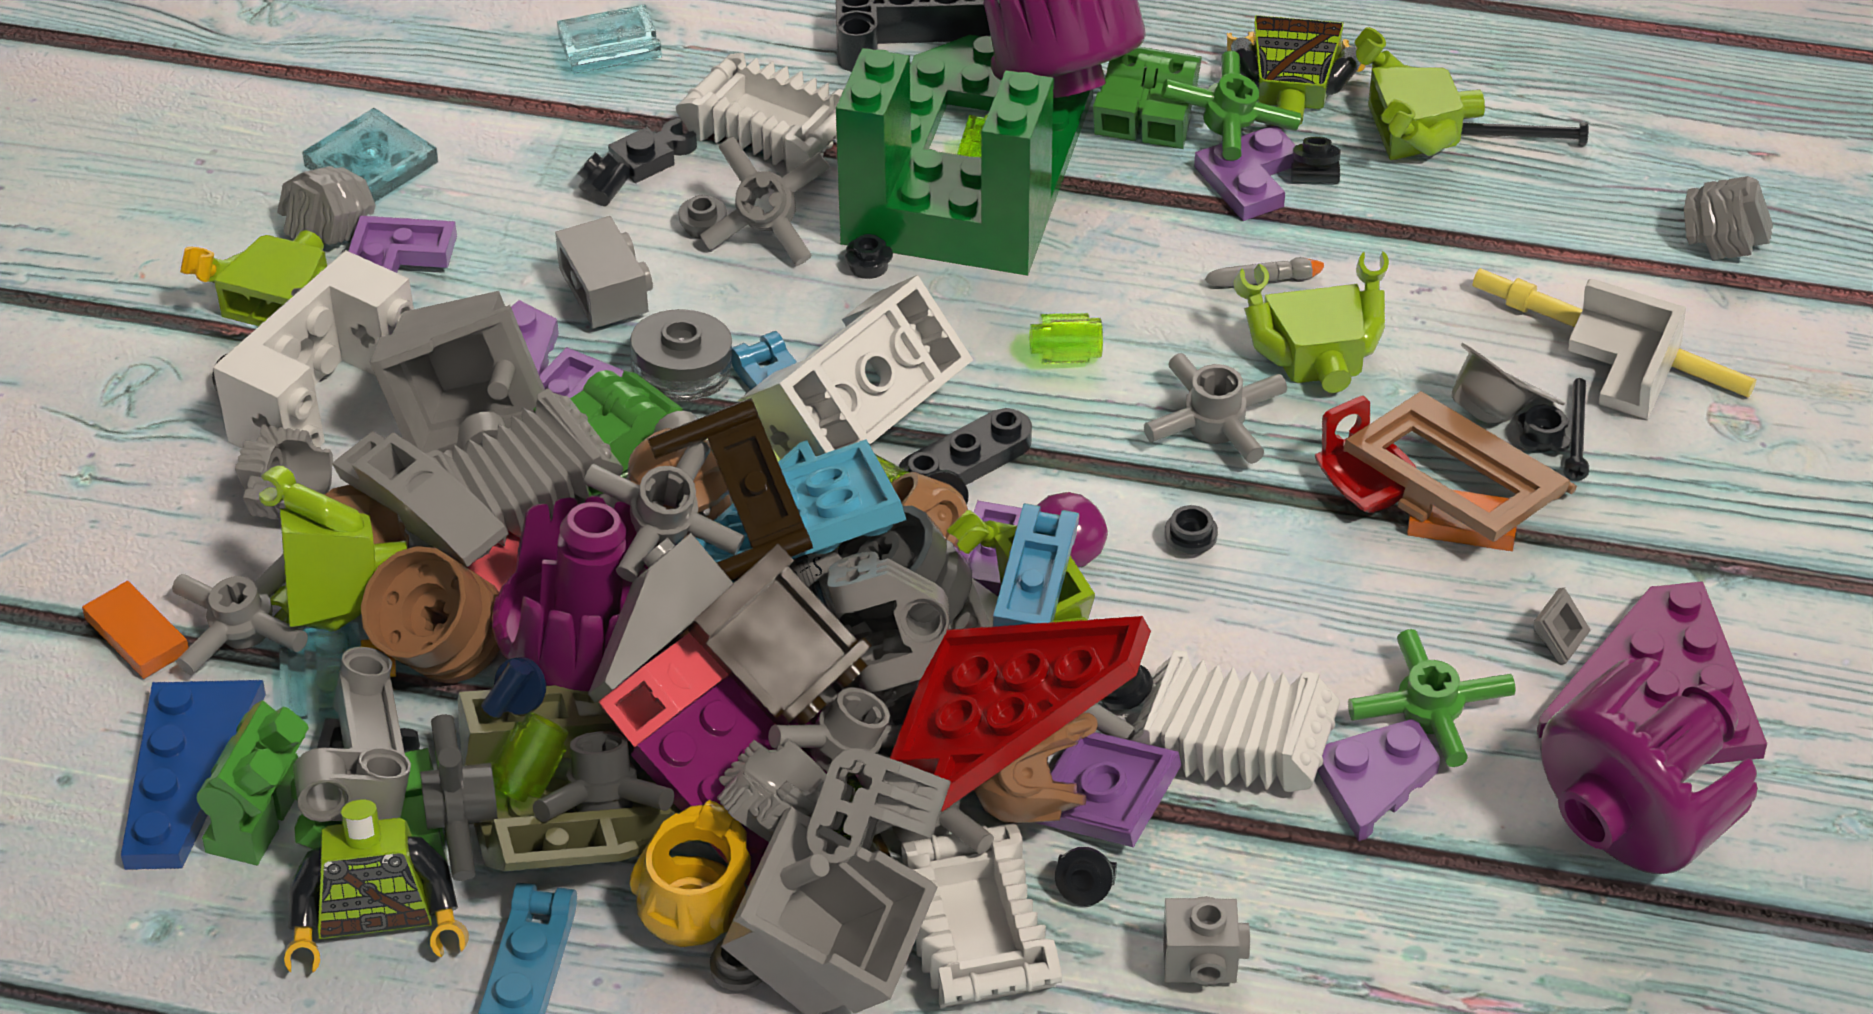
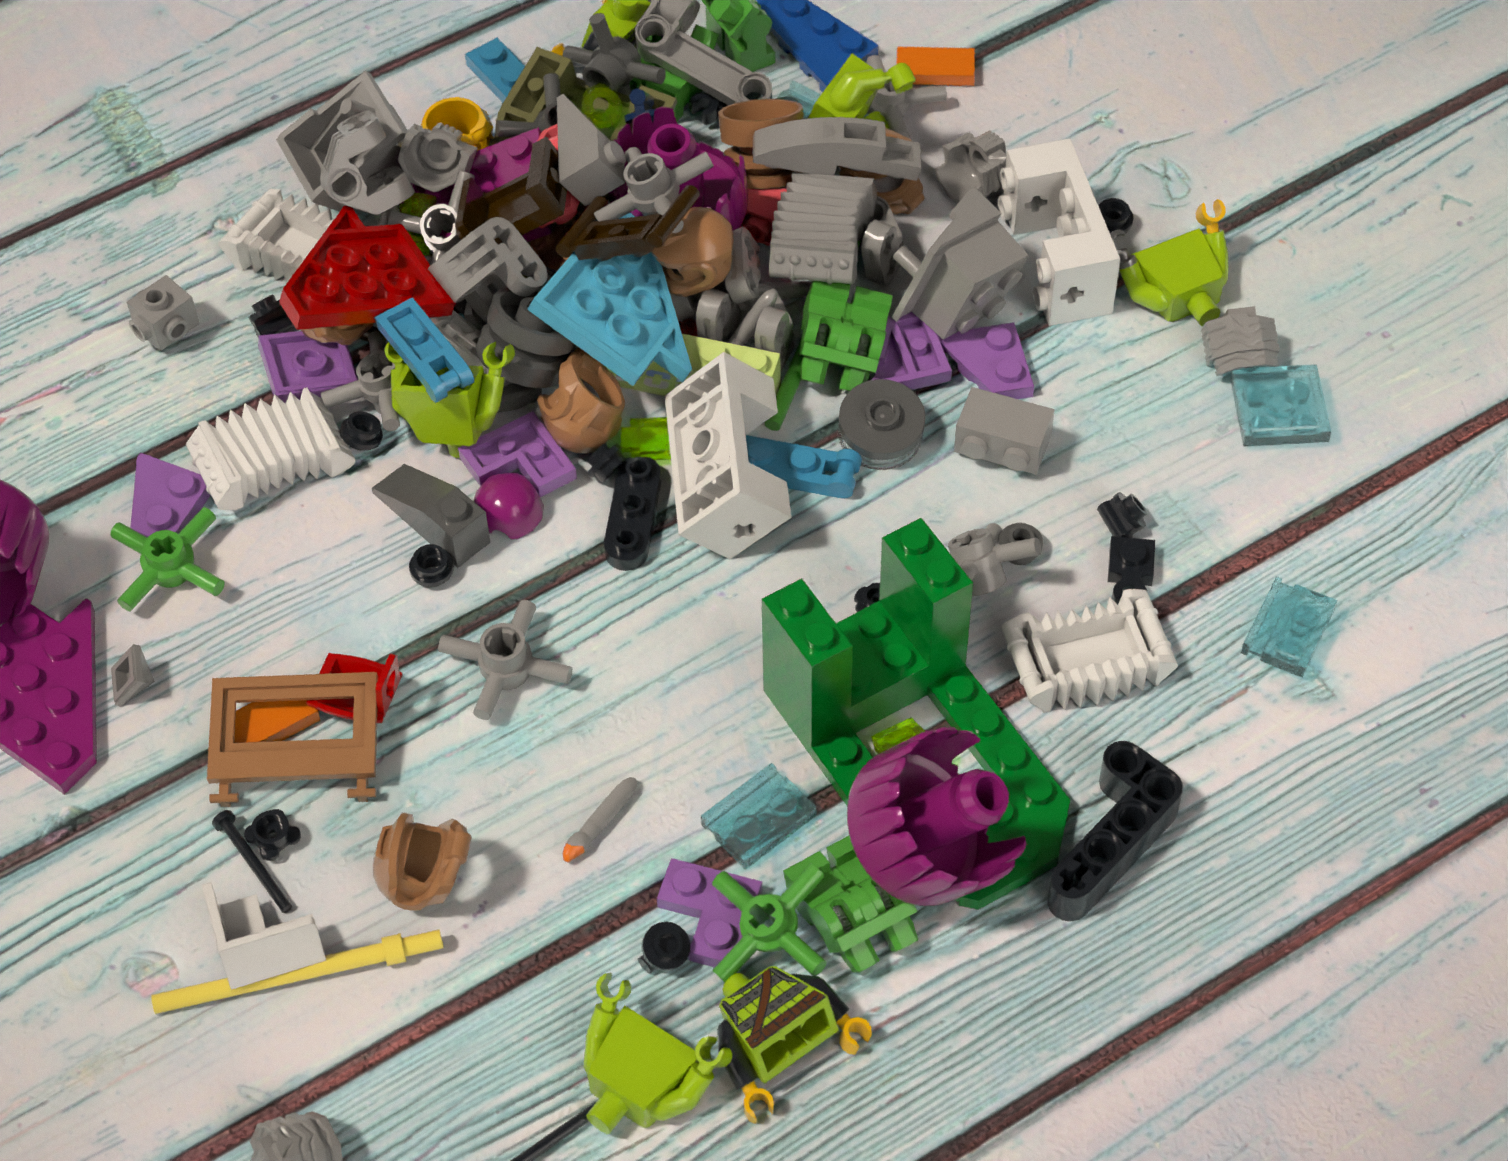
camera: 135 degrees right, 10 degrees up
(404, 241) = (1164, 356): medium lavender plate -> none
(1066, 338) = (662, 635): clear neon green brick -> none
(1141, 558) = (436, 511): none -> dark grey slope
(1142, 197) = (758, 816): none -> clear light blue plate
(1317, 330) = (501, 773): lime torso -> none
(1463, 309) = (418, 861): none -> medium nougat helmet
(1491, 392) = (319, 833): light grey piece -> none

